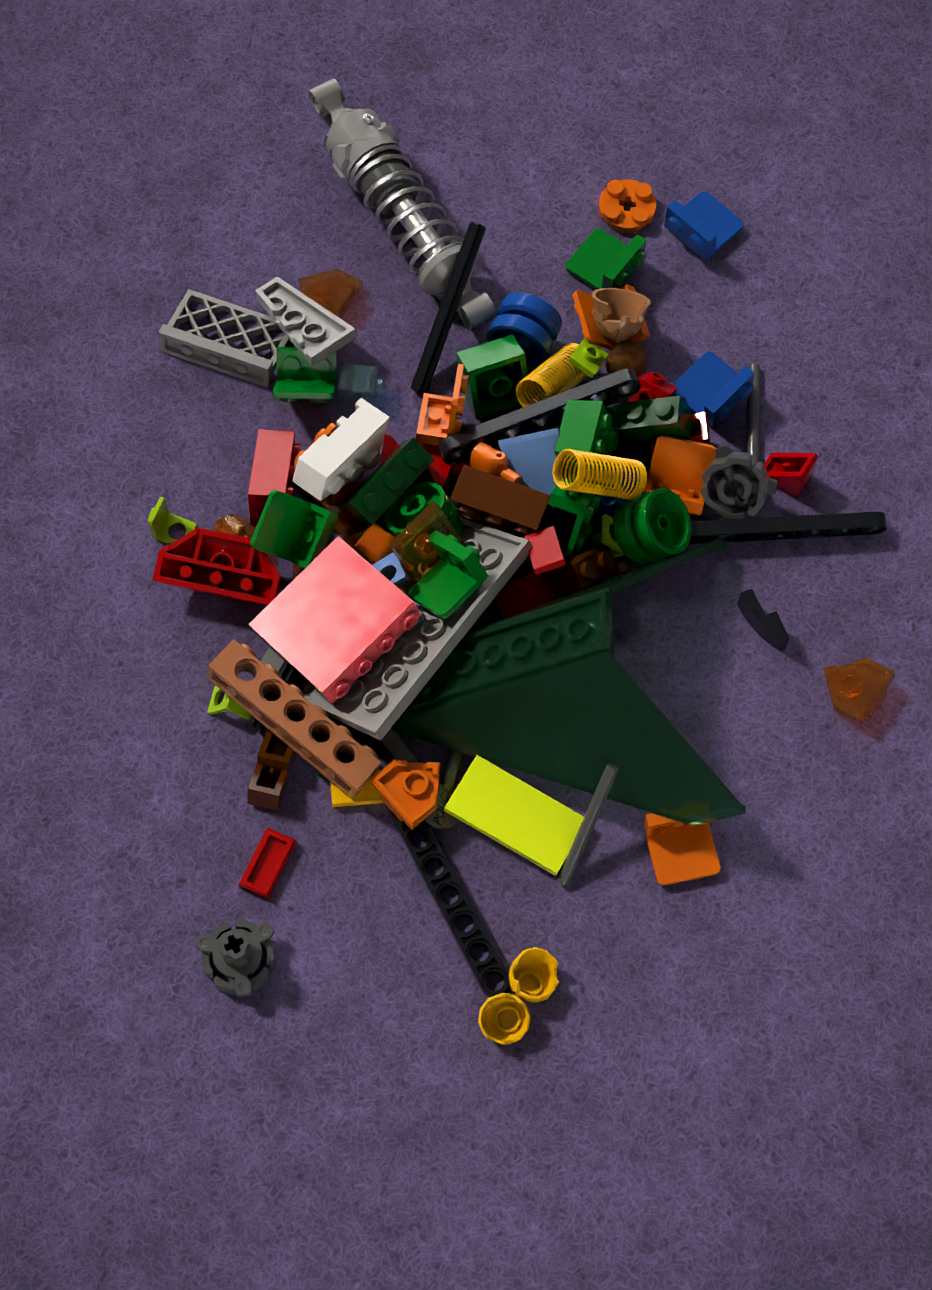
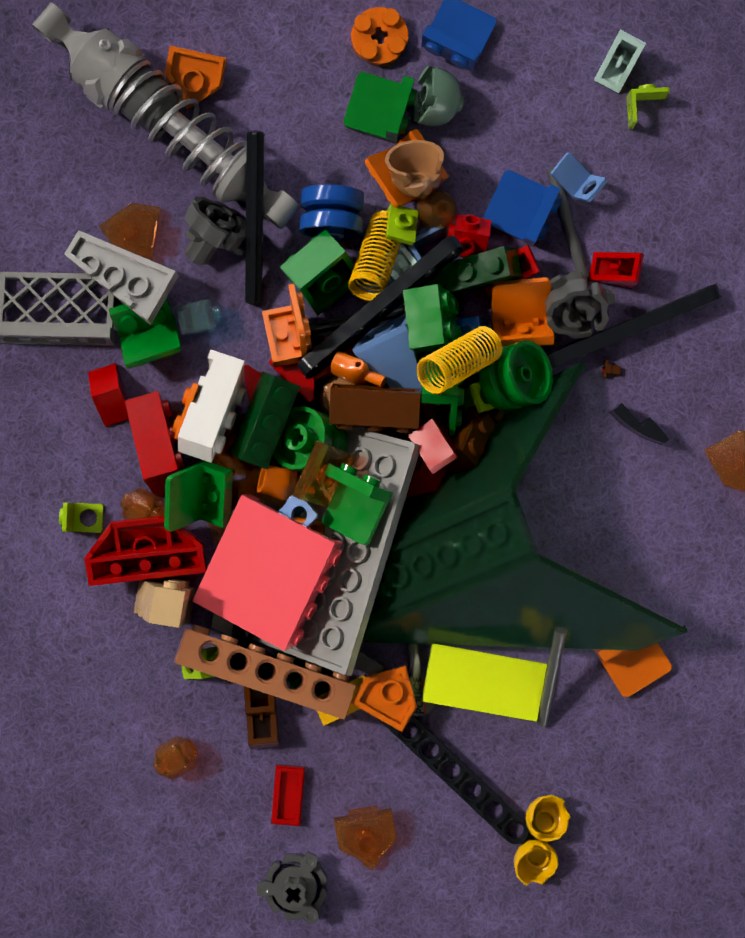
camera: 20 degrees left, 20 degrees up
(167, 781) = (175, 757): none -> clear orange head
(223, 618) = (165, 602): none -> tan wedge
(243, 426) = (108, 394): none -> red slope
(333, 929) = (366, 834): none -> clear orange plate
(404, 308) = (211, 229): none -> dark grey piece
(444, 178) = (195, 73): none -> orange plate
(664, 268) = (438, 97): none -> sand green cylinder
(751, 563) = (609, 369): none -> reddish brown piece
(773, 378) = (576, 179): none -> medium blue bracket
(852, 291) = (619, 61): none -> light aqua slope
(867, 328) = (644, 92): none -> lime bracket

